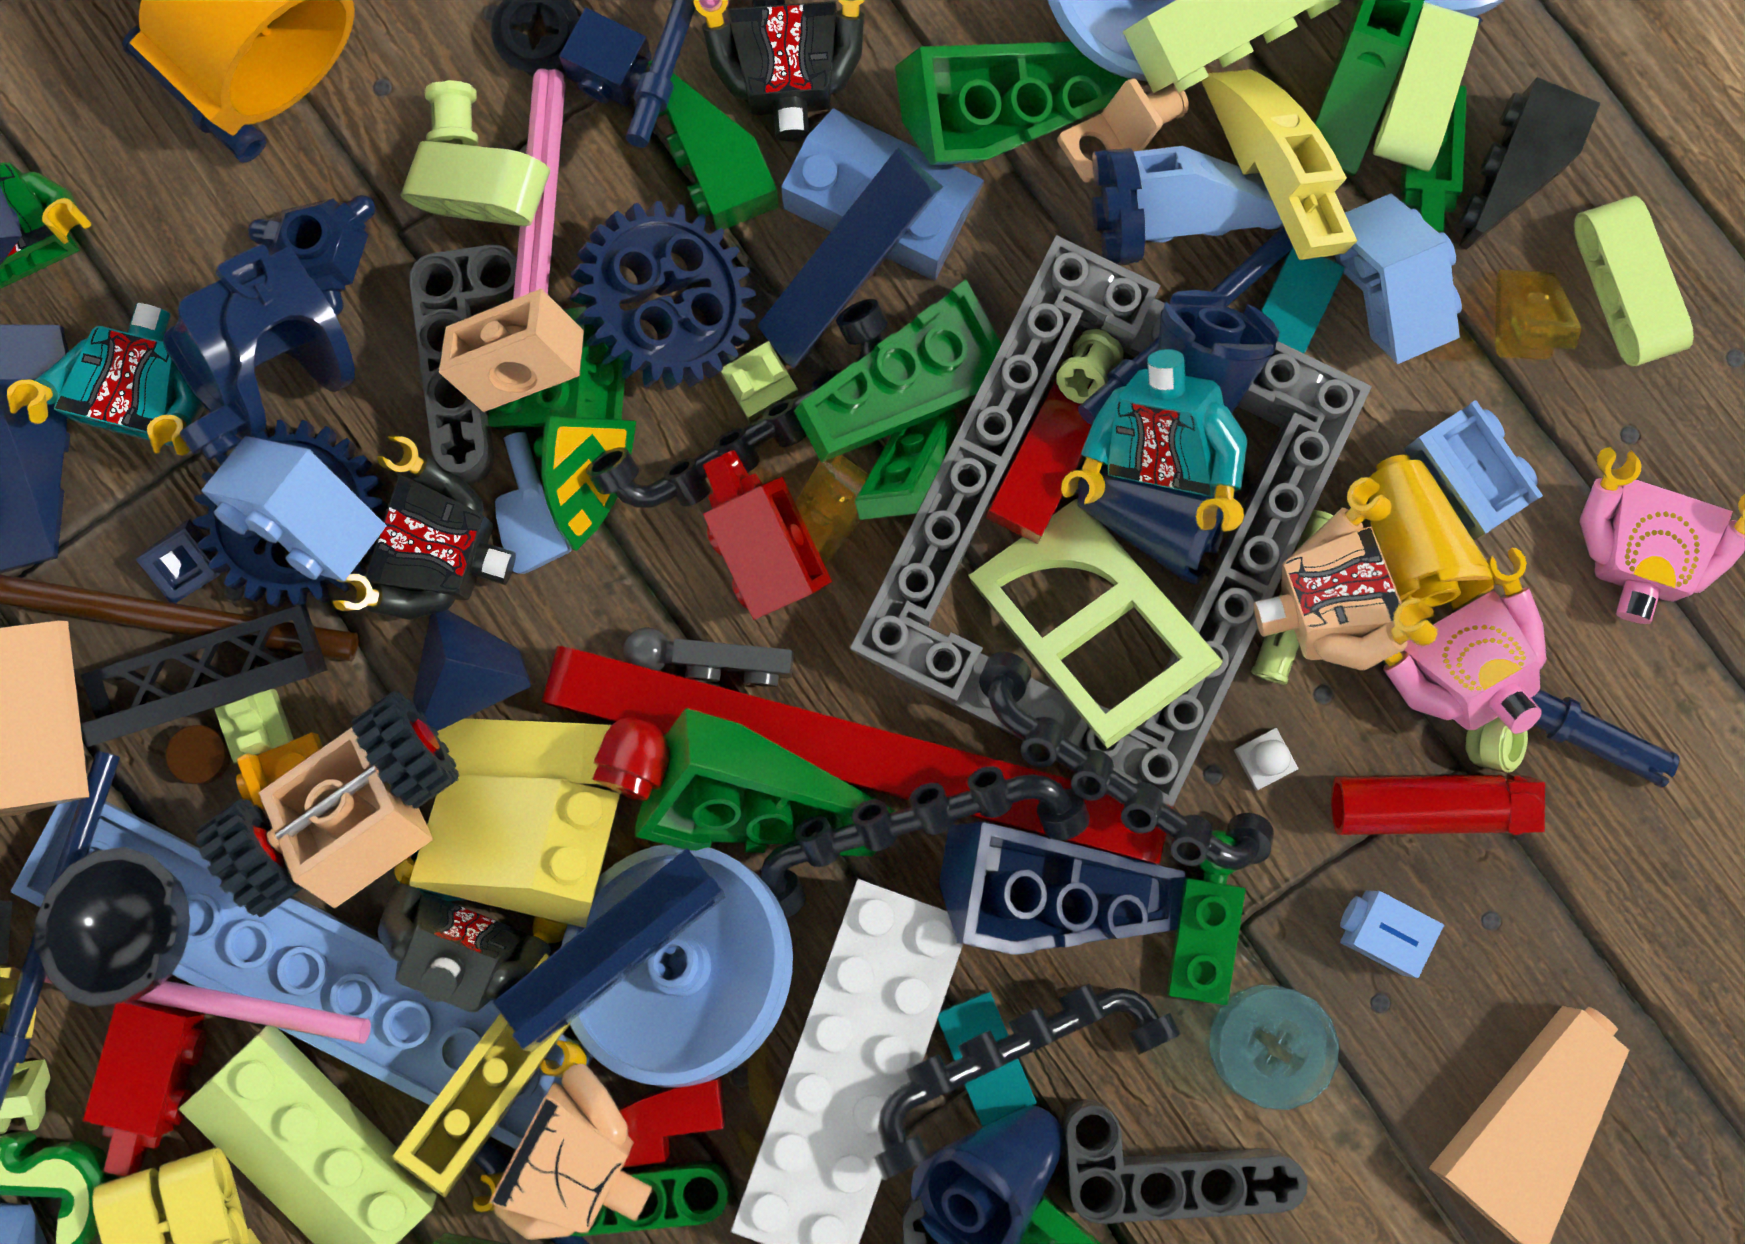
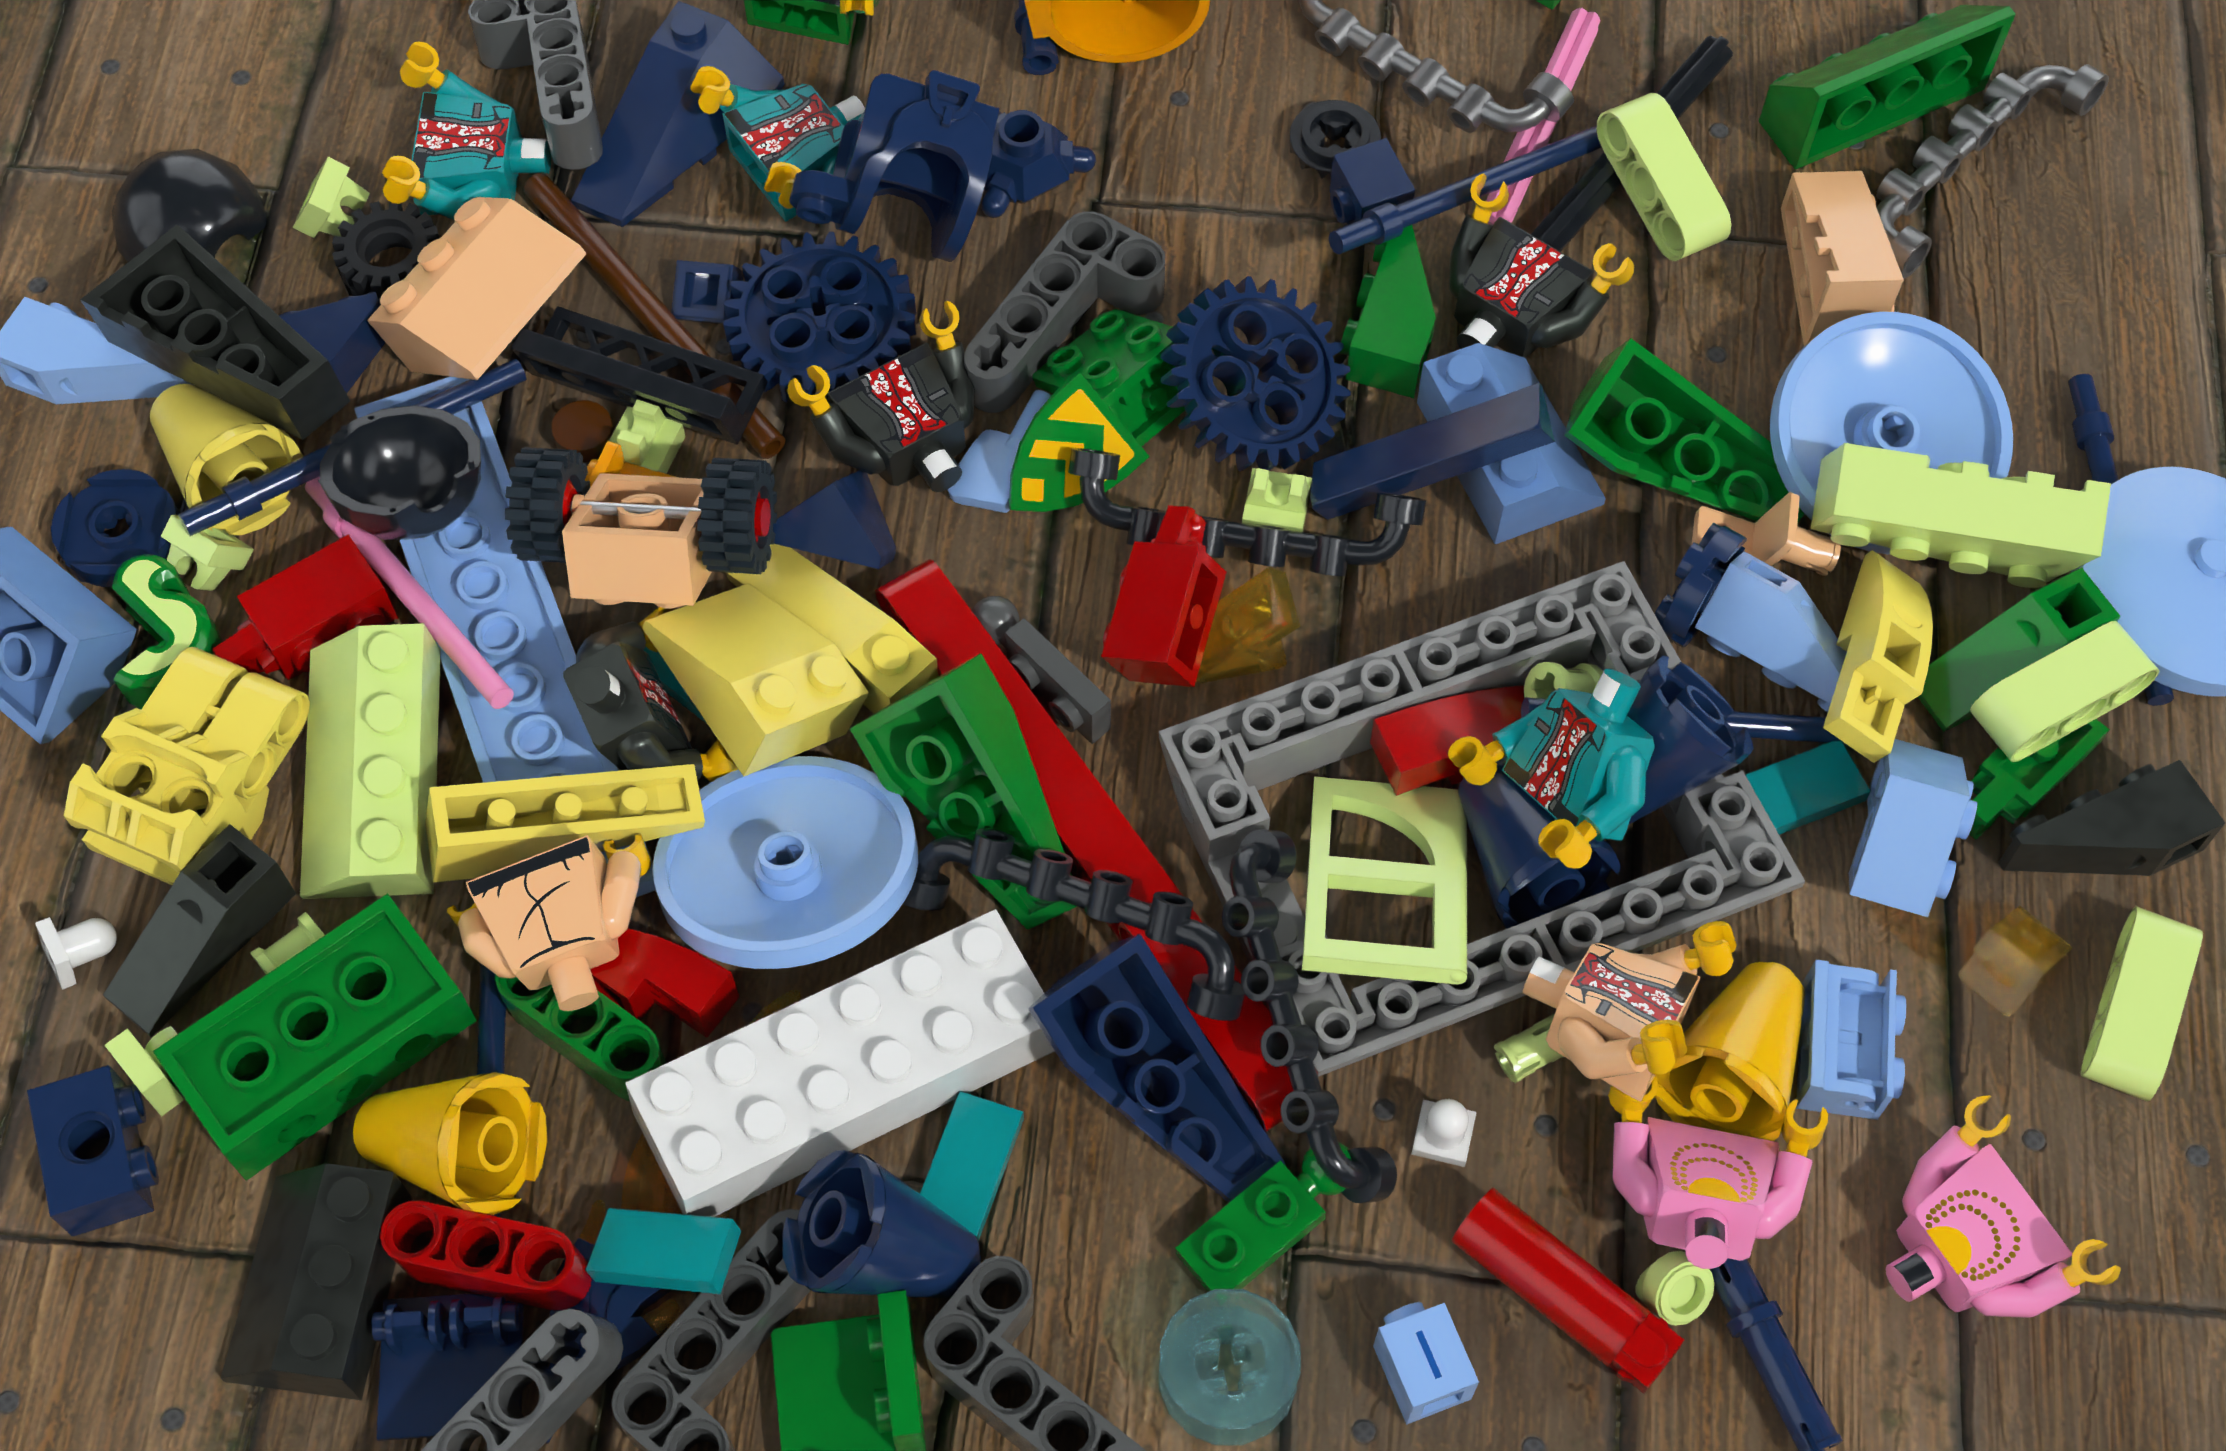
camera: 45 degrees right, 20 degrees down
(296, 501) = (832, 291): light blue brick -> none
(451, 112) = (1211, 146): yellowish green bush -> none
(475, 183) = (1184, 193): yellowish green beam -> none
(512, 350) = (1096, 310): light nougat brick -> none
(544, 145) = (1222, 243): bright pink axle -> none
(608, 950) = (744, 793): dark blue fence -> none
(632, 758) = (902, 661): red piece -> none
(905, 379) = (1390, 574): green wing -> none
(907, 468) = (1329, 625): green tile -> none
(985, 1054) = (964, 1131): black bar -> none

